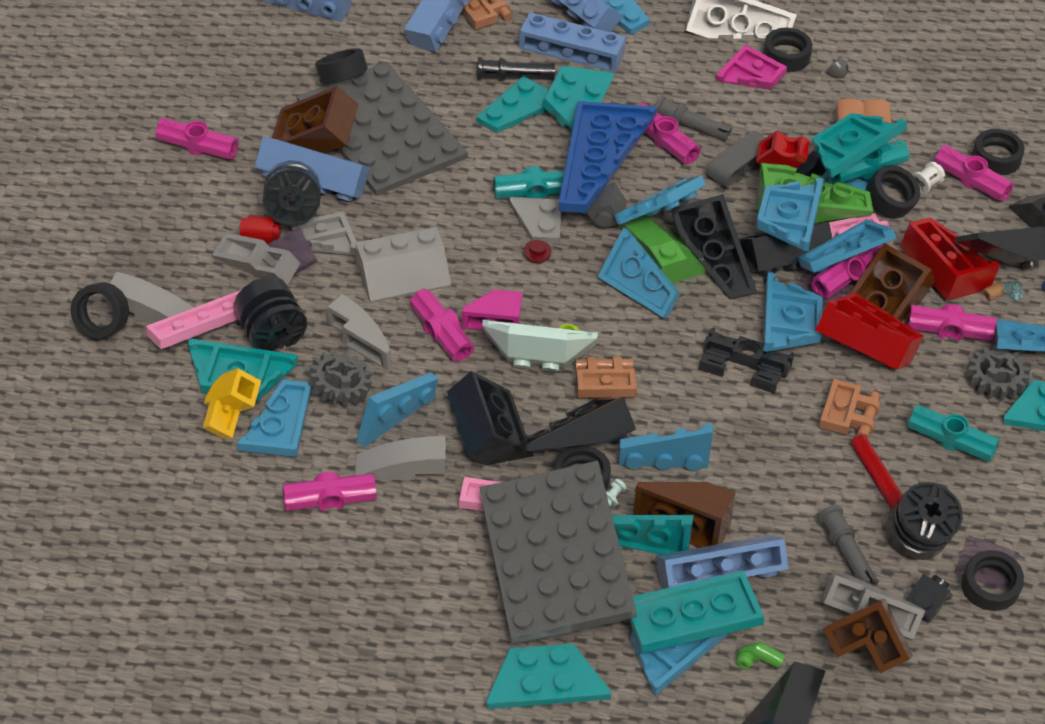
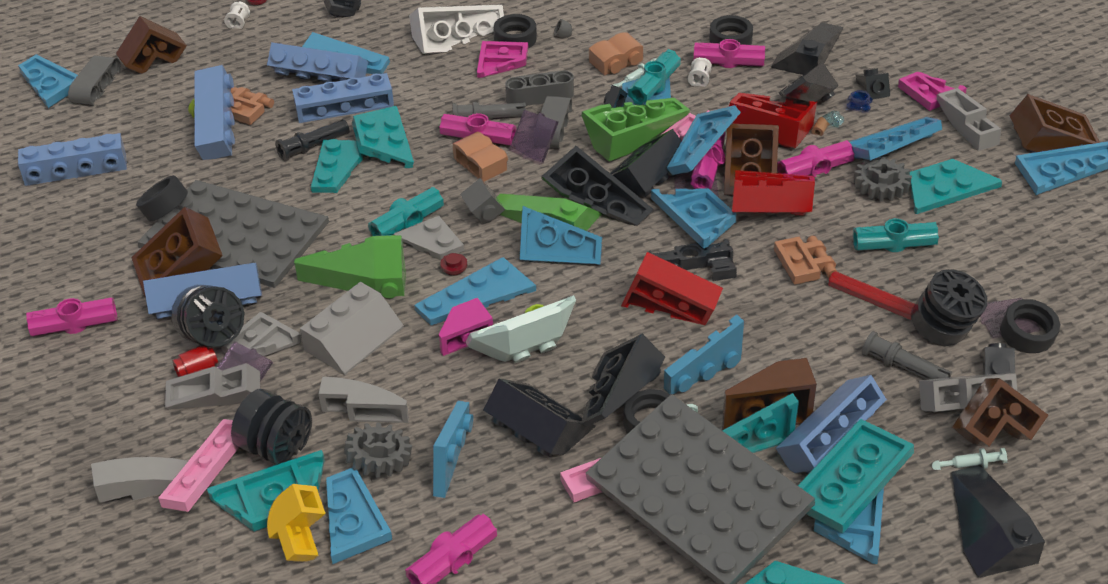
camera: 30 degrees left, 5 degrees down
(80, 315) = (94, 531): black tyre -> none
(404, 458) = (494, 486): light grey slope -> none
(441, 325) = (427, 360): dark pink piece -> none
(461, 218) = (375, 263): none -> bright green wedge
(543, 286) = (490, 284): none -> dark azure wing
(598, 146) = (442, 160): blue wing -> none
(605, 377) = (599, 331): nougat plate -> none
(646, 163) = (480, 156): none -> nougat brick
(665, 198) = (526, 172): dark azure wing -> none
(695, 374) = (672, 290): none -> red wedge
(707, 161) = (533, 136): none -> clear purple piece
(751, 116) = (536, 87): none -> dark grey beam
(757, 652) = (921, 479): bright green arm -> none
(783, 150) = (587, 96): red brick -> none
(790, 212) = (642, 133): dark azure wing -> none
(828, 664) = (981, 458): none -> light aqua piece
(853, 139) = (638, 63): teal wing -> none
(900, 178) = (692, 82): black tyre -> none

